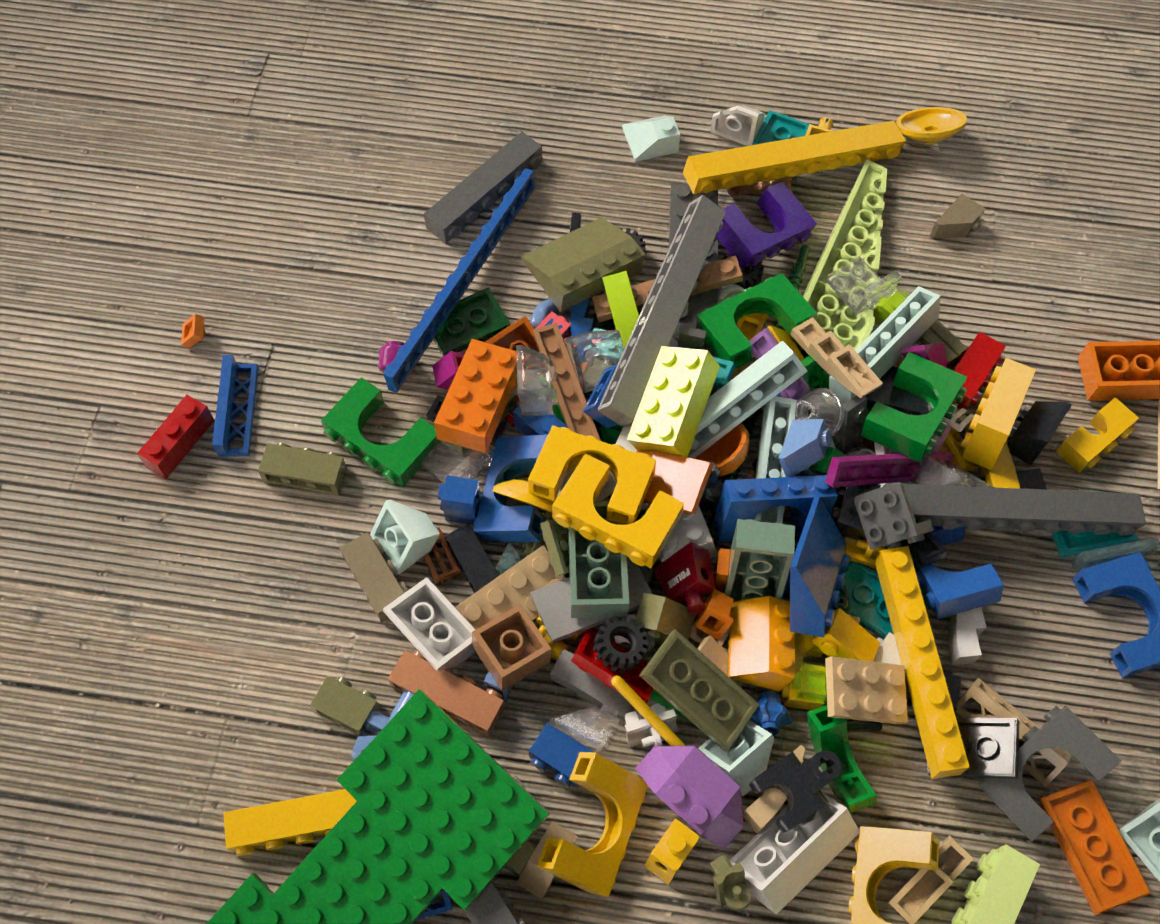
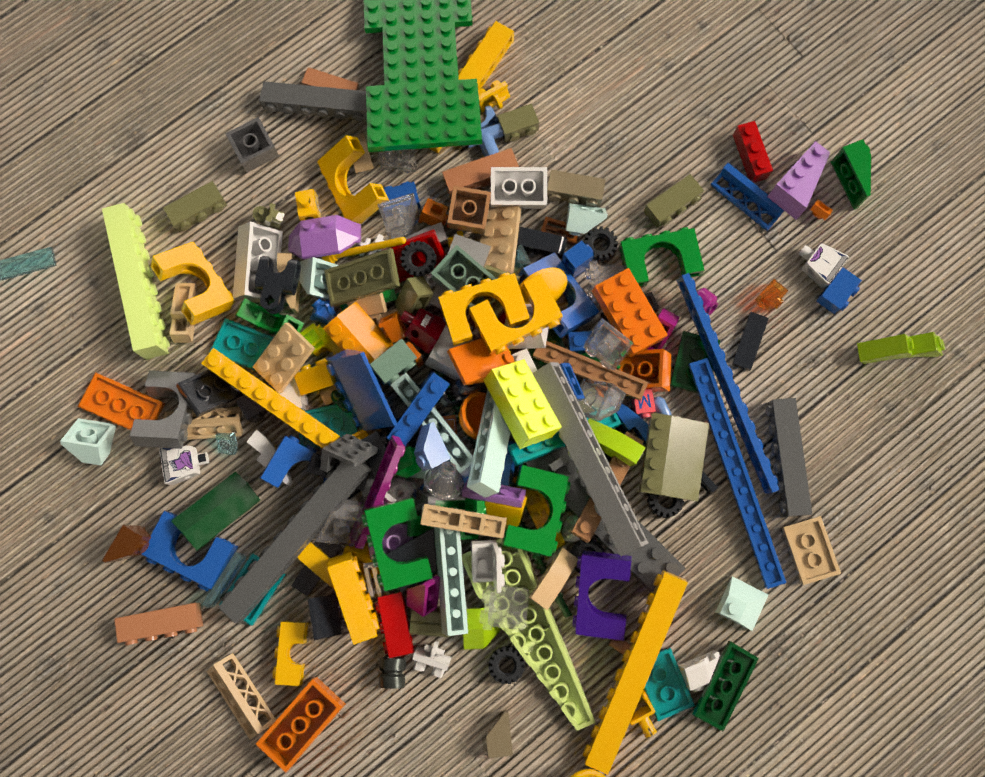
camera: 135 degrees right, 15 degrees up
(124, 323) = (854, 171): none -> green slope
(176, 363) = (798, 184): none -> medium lavender wedge
(256, 289) = (822, 263): none -> white torso
(273, 258) = (839, 290): none -> blue brick
(293, 168) = (900, 347): none -> lime arch
(320, 764) = (494, 96): none -> yellow hips
(332, 308) = (771, 296): none -> clear orange brick
(397, 296) = (750, 341): none -> black tile
(420, 487) = (605, 235): none -> black tyre
(536, 218) = (737, 474): none -> blue plate
(542, 709) = (433, 213): none -> orange brick
(553, 118) = (811, 550): none -> tan plate
(719, 100) = (725, 686): none -> dark green slope
(798, 265) = (553, 579): none -> tan slope
(839, 315) = (487, 563): none -> white bracket
(893, 773) = (241, 343): none -> teal tile
(905, 251) = (515, 674): none -> black tyre
(963, 319) = (431, 656): none -> white hips
(1002, 682) = (226, 443): none -> clear light blue slope
(1016, 335) = (392, 672): none -> pearl dark grey wheel
(1073, 624) = (216, 510): none -> dark green slope
(1080, 699) = (181, 463): none -> torso

